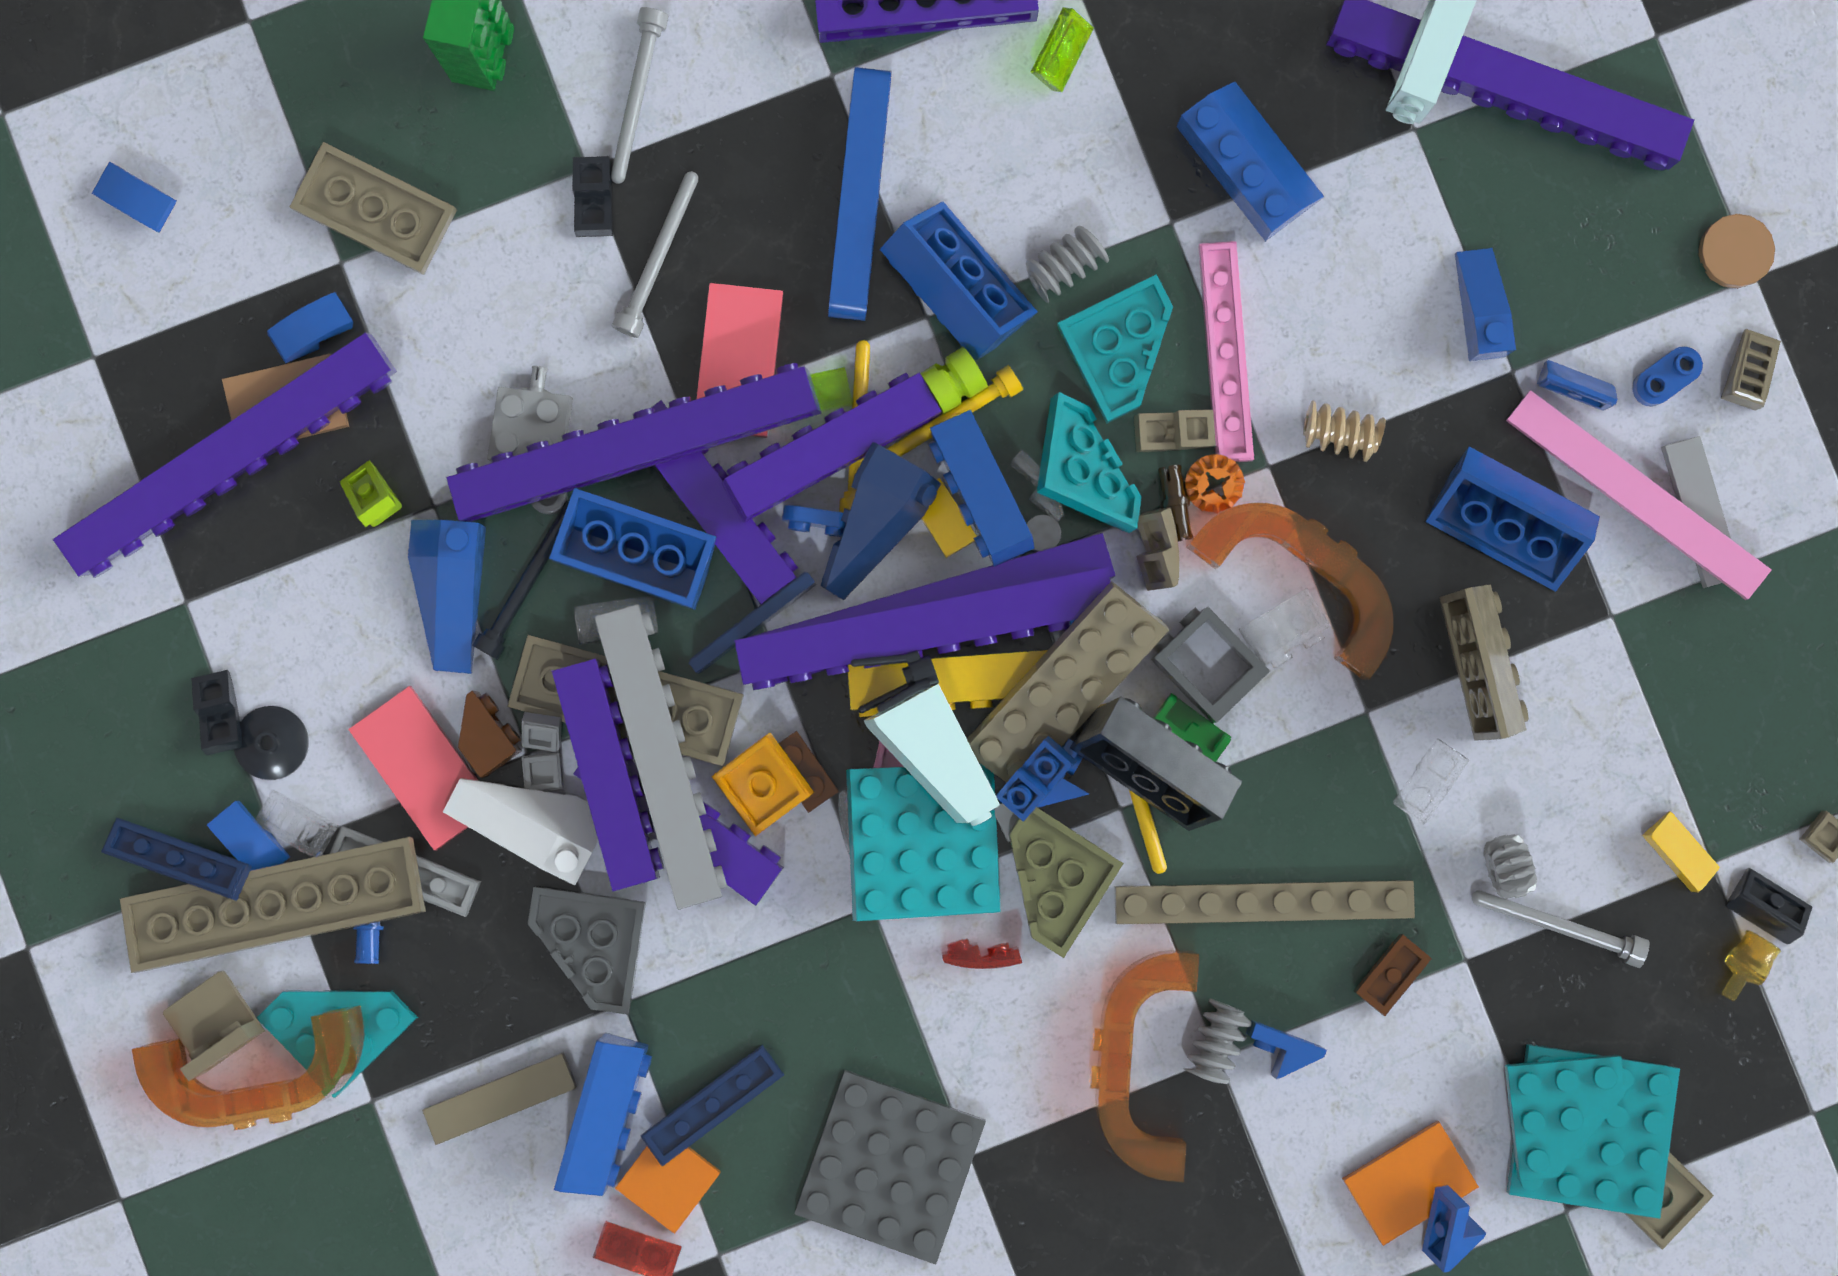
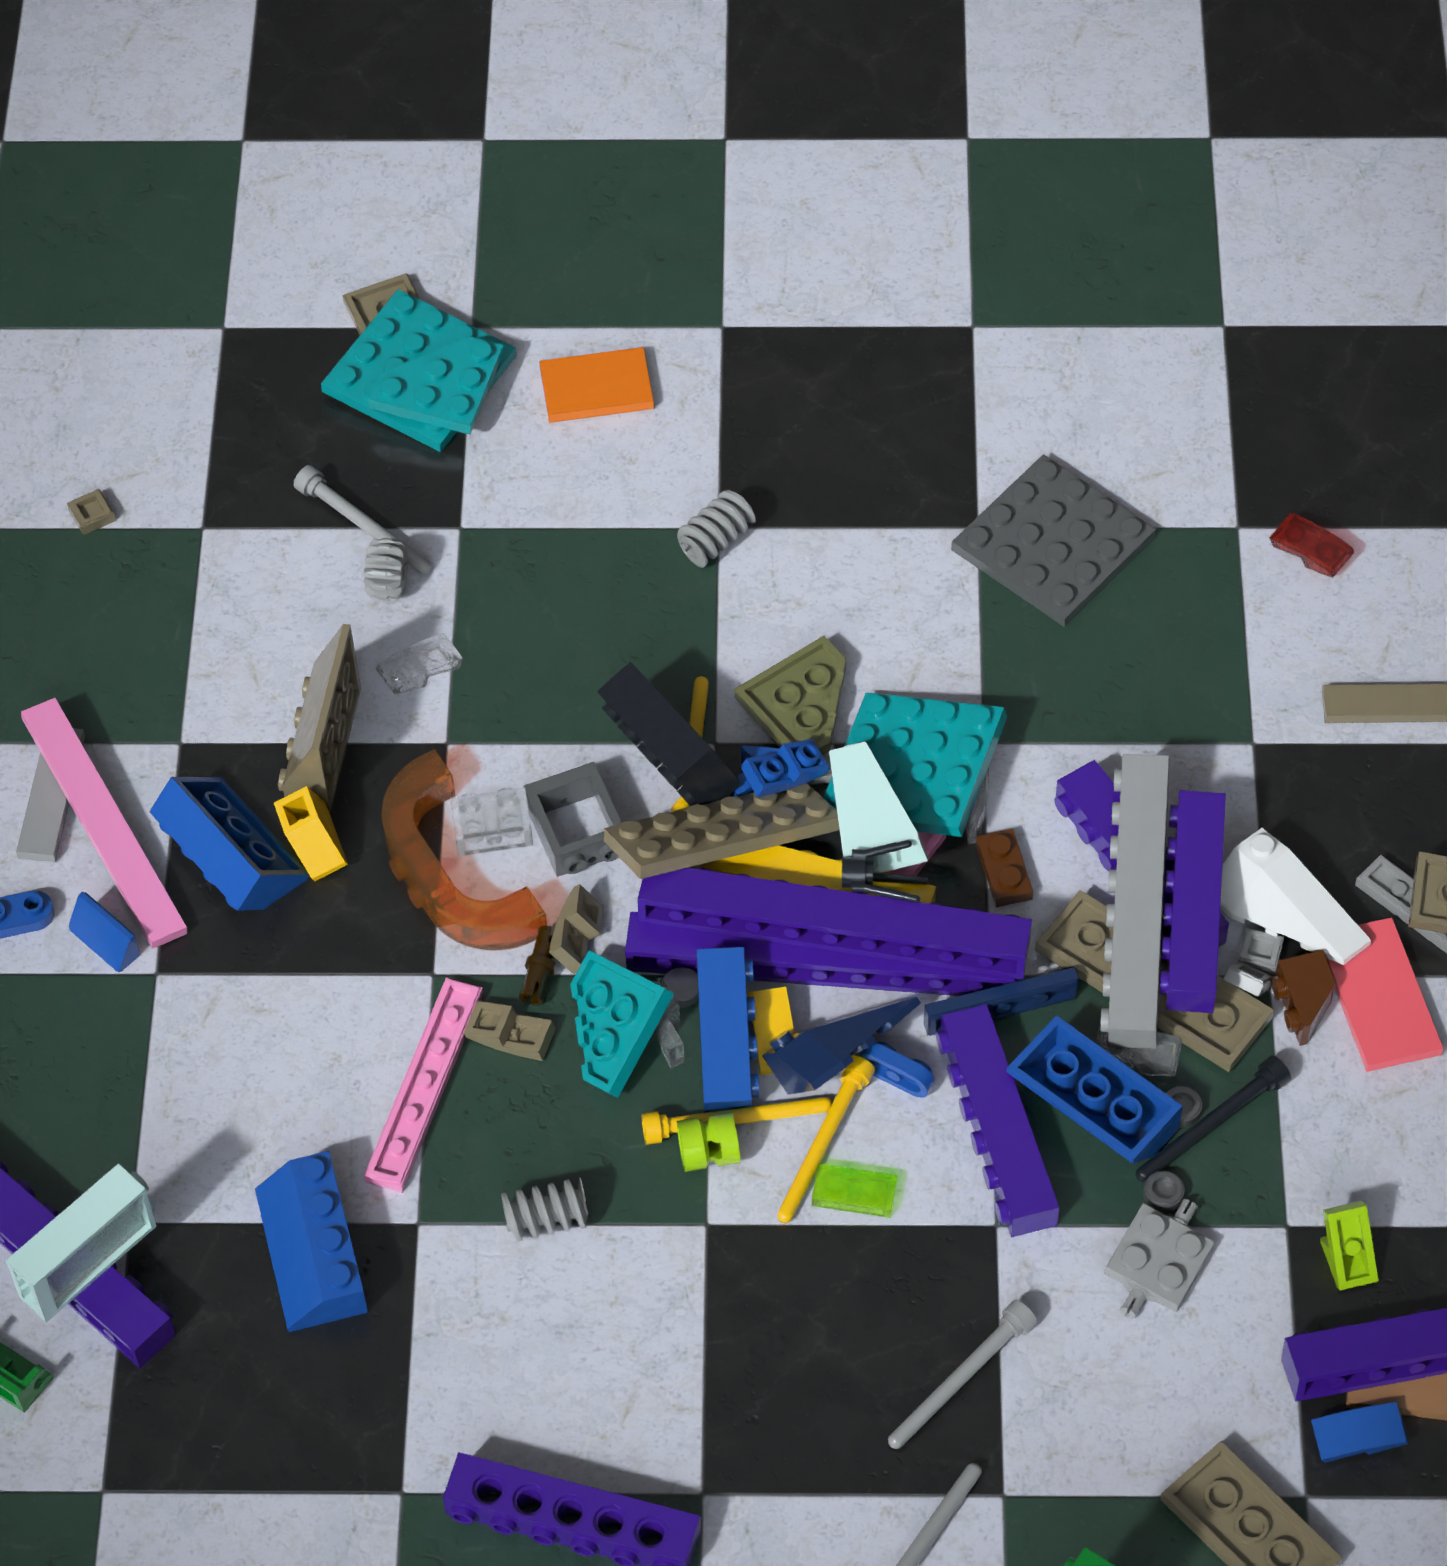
camera: 150 degrees left, 30 degrees down
(447, 582) = (1296, 1145): blue wedge -> none
(560, 585) = (1191, 1104): none -> flat silver tile
(592, 196) = (1008, 1458): black slope -> none
(592, 942) = (1267, 791): dark grey plate -> none
(602, 1116) = (1304, 651): blue slope -> none
(633, 444) = (1057, 1175): dark purple brick -> none
(668, 1190) = (1262, 593): orange tile -> none
(712, 1105) = (1198, 631): dark blue tile -> none
(739, 336) = (917, 1247): coral tile -> none
(762, 784) = (1046, 863): light orange tile -> none
(831, 447) = (857, 1113): dark purple brick -> none
(859, 194) = (723, 1356): blue beam -> none
(957, 280) = (660, 1235): blue slope -> none
(968, 955) = (913, 665): clear red slope -> none
(1062, 49) = (459, 1410): clear neon green plate -> none
(1119, 344) = (526, 1122): teal plate -> none
(1158, 972) = (770, 595): clear orange arch -> none
(1193, 727) = (623, 773): green hinge -> none
(1219, 467) = (483, 975): orange gear -> none
(1264, 902) = (619, 625): dark tan plate -> none
(1293, 1051) = (654, 506): blue slope -> none
(1343, 430) = (348, 967): tan piece -> none
(1392, 974) = (532, 531): reddish brown plate -> none
(1441, 551) = (311, 832): none -> yellow slope
(1450, 1229) = (581, 334): blue slope -> none
(1484, 306) = (154, 1029): blue slope -> none
(1681, 852) = (225, 540): yellow slope -> none
(1749, 963) = (215, 442): clear yellow piece -> none
(1770, 907) = (171, 478): black slope -> none

